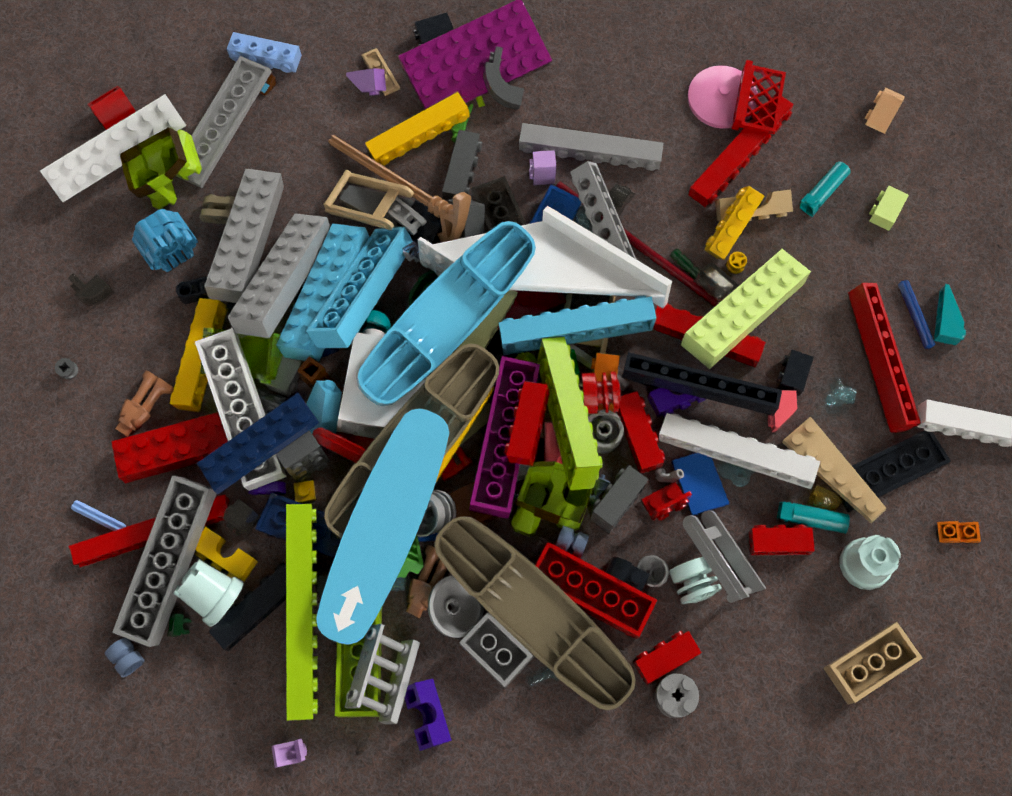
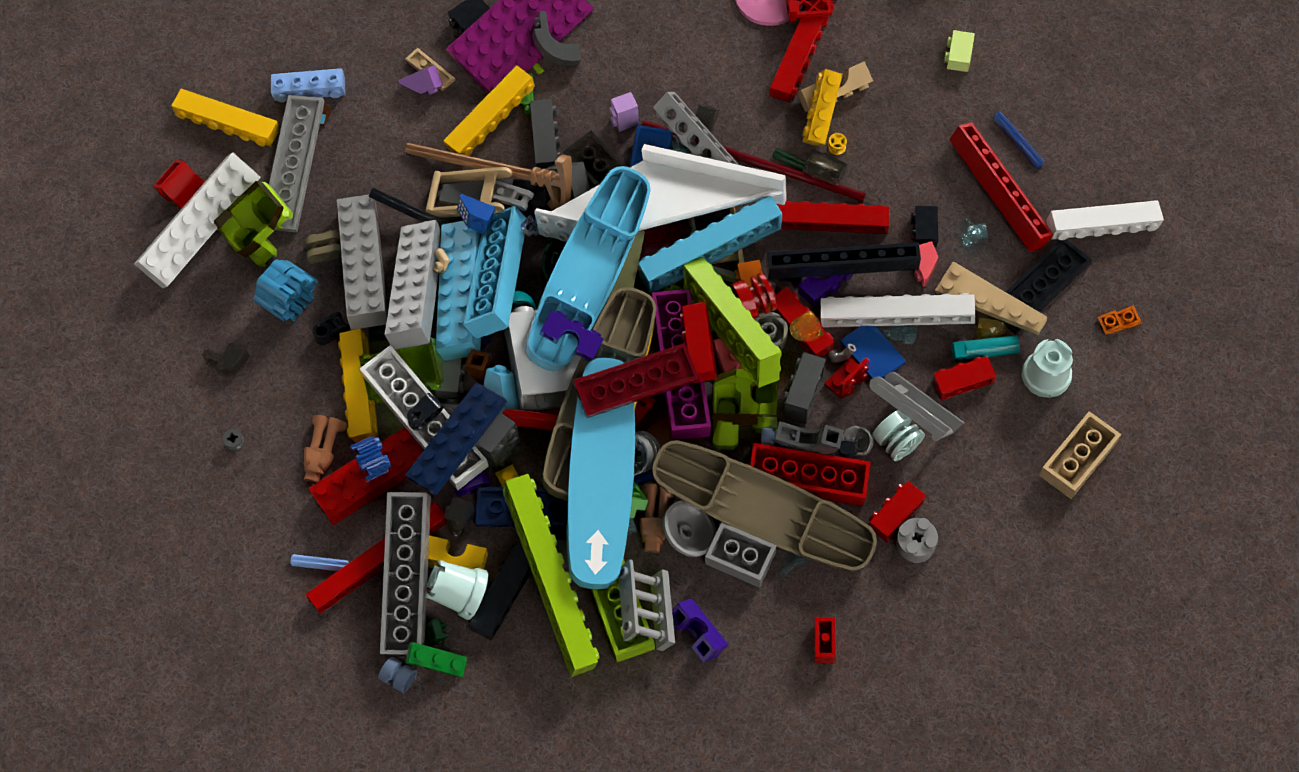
camera: 15 degrees left, 5 degrees down
(163, 656) = (436, 659): none -> green plate
(174, 433) = (371, 458): none -> blue brick
(178, 60) = (225, 117): none -> yellow brick
(238, 404) = (426, 410): none -> black piece
(289, 753) = (584, 705): lavender bracket -> none
(305, 196) = (404, 207): none -> black axle
(317, 260) = (442, 265): none -> tan arm
(364, 223) = (475, 213): none -> blue slope
(390, 364) = (559, 325): none -> dark purple arch
(448, 444) = (635, 380): none -> dark red plate
(547, 770) = (824, 640): none -> red brick
(591, 146) = (662, 78): light grey brick -> none
(600, 485) = (782, 385): sand blue piece -> none
(603, 557) = (821, 441): none -> dark grey arch
(640, 439) = (806, 327): none -> clear yellow brick
(745, 308) = (860, 181): yellowish green brick -> none
(824, 188) = (895, 51): teal piece -> none
(949, 321) = (1049, 135): teal slope -> none

